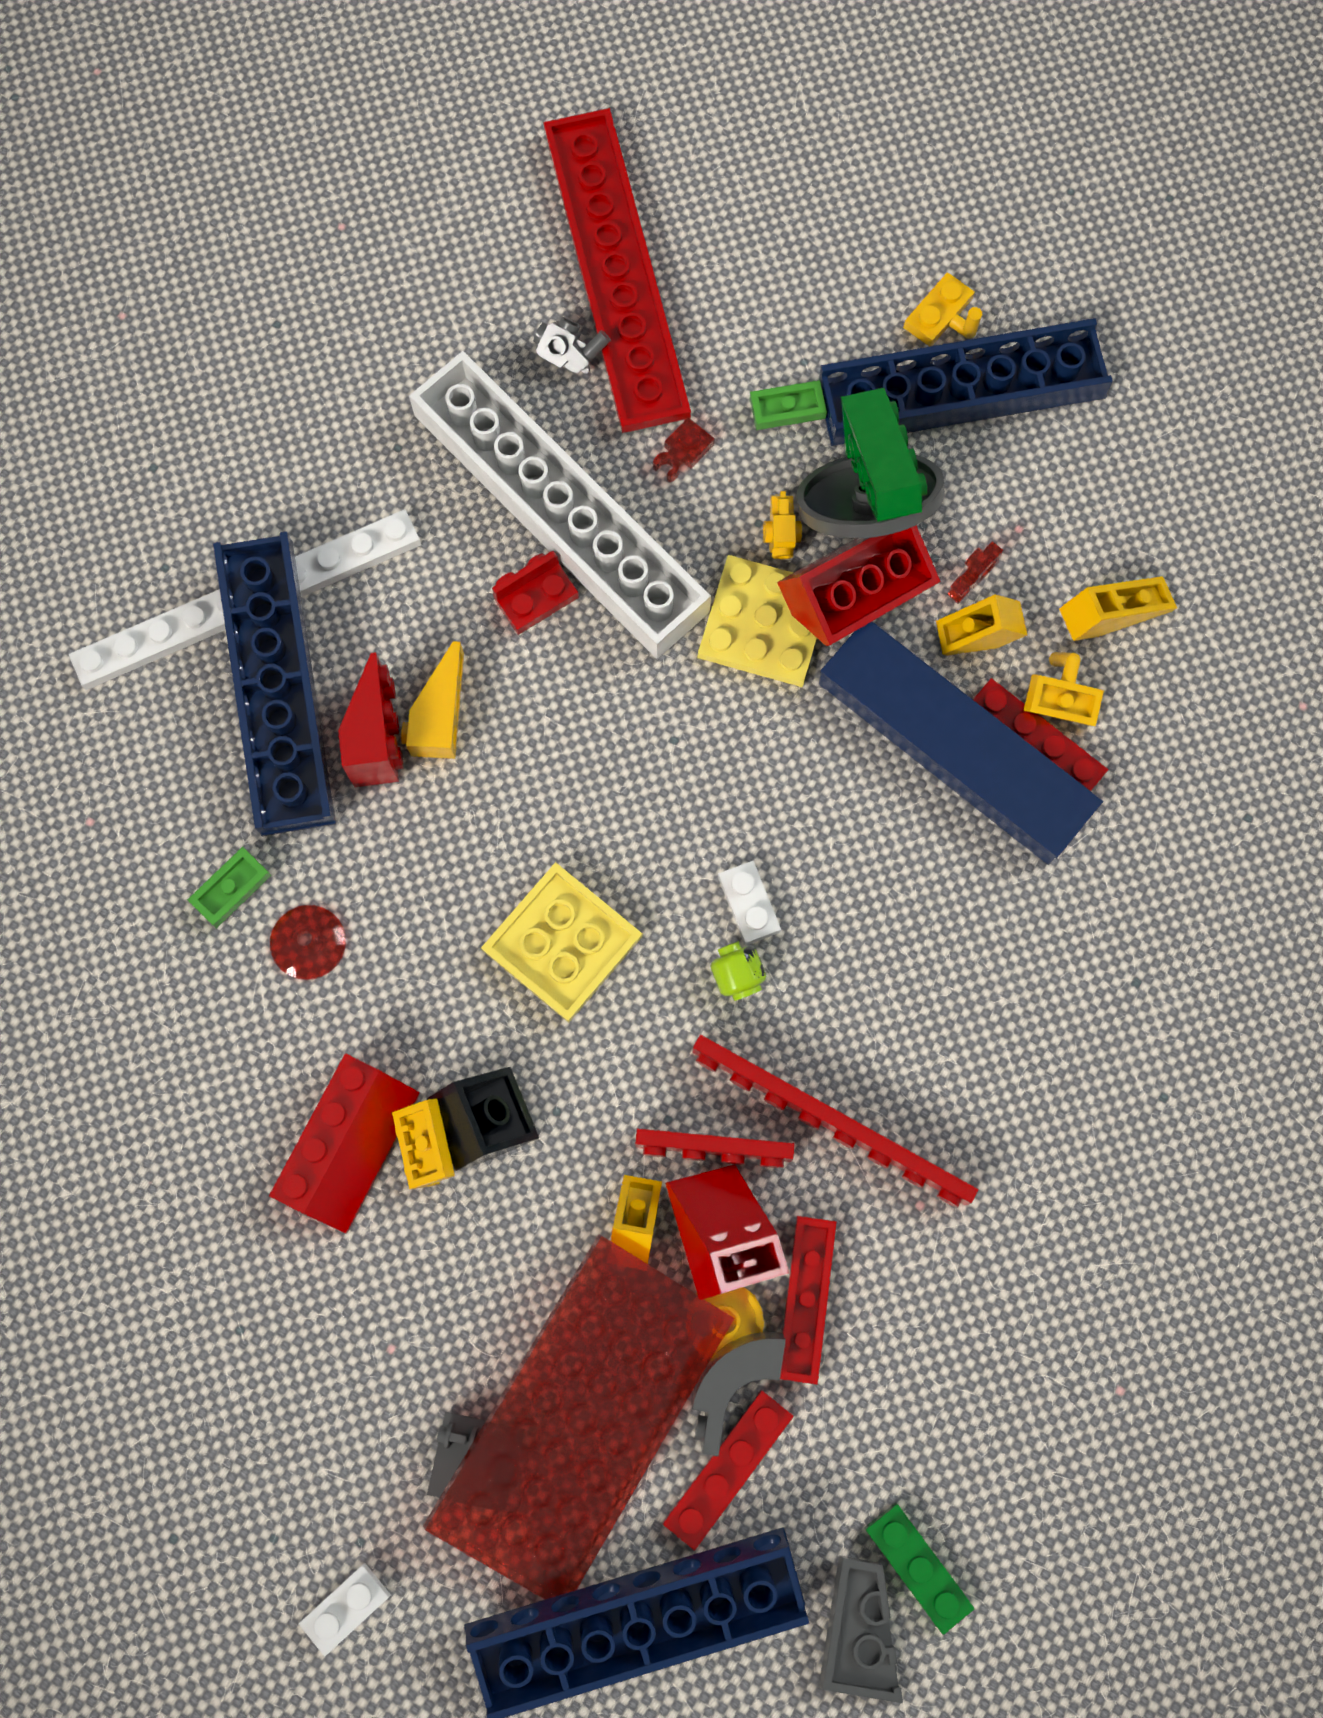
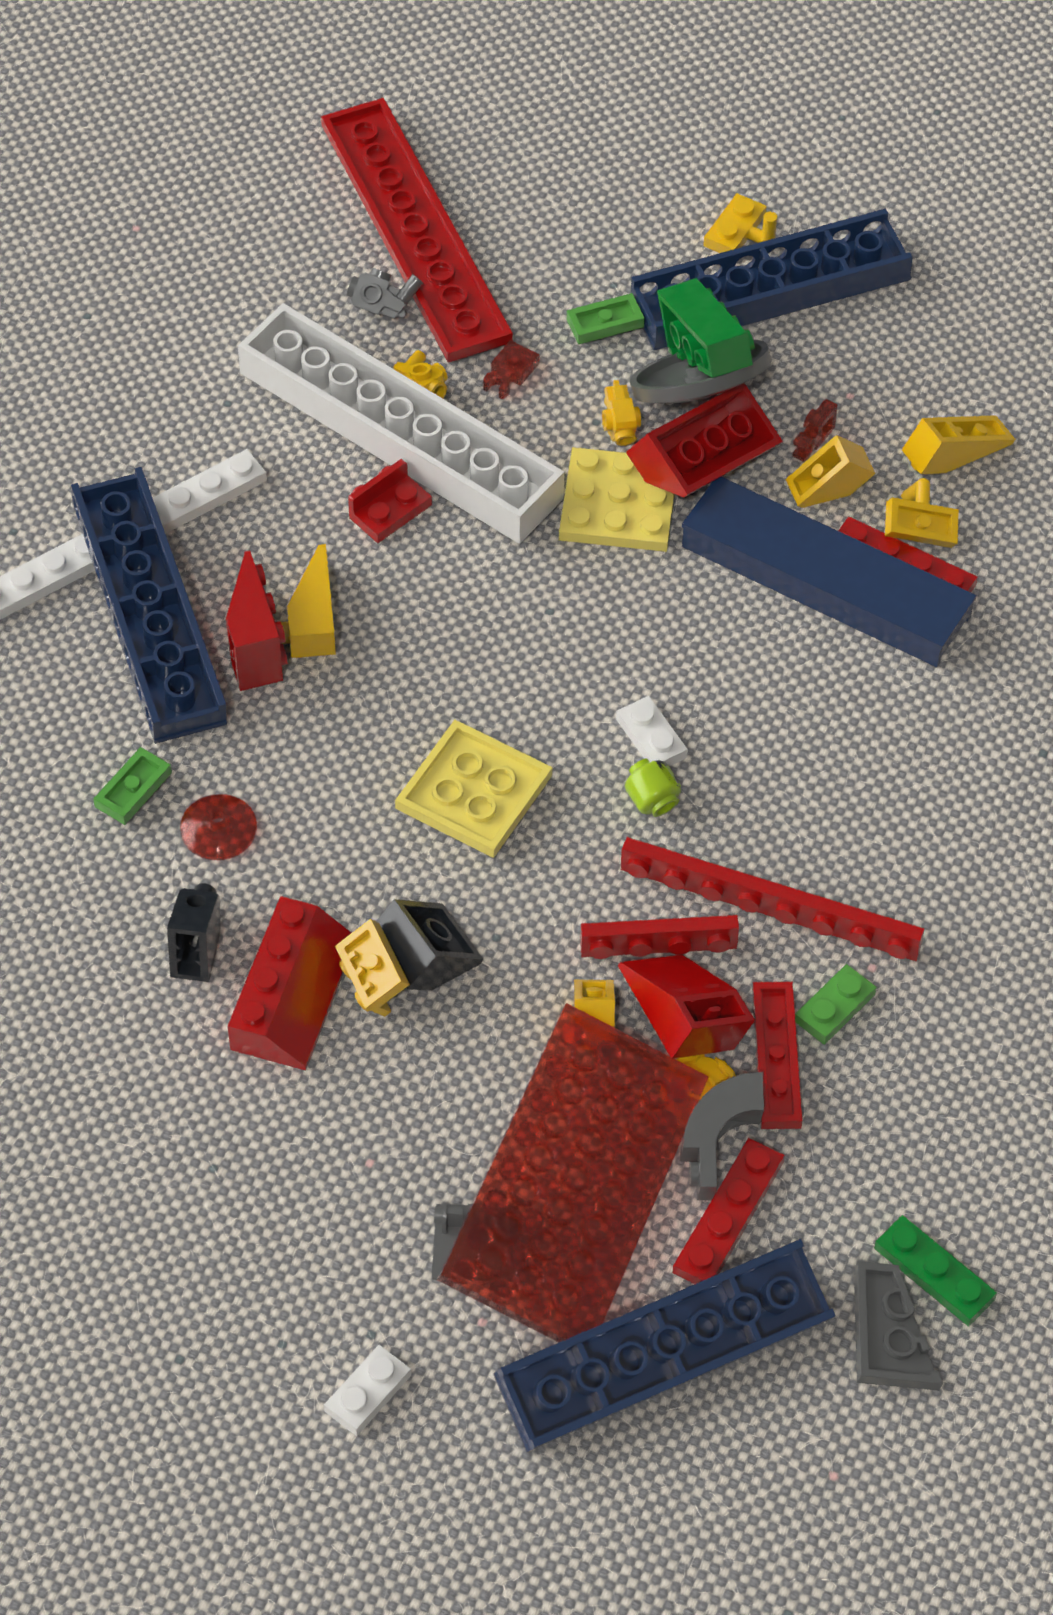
camera: 10 degrees left, 20 degrees down
(259, 1070) = (194, 914): none -> black torso
(591, 454) = (428, 376): none -> yellow piece
(875, 1246) = (835, 1004): none -> bright green plate

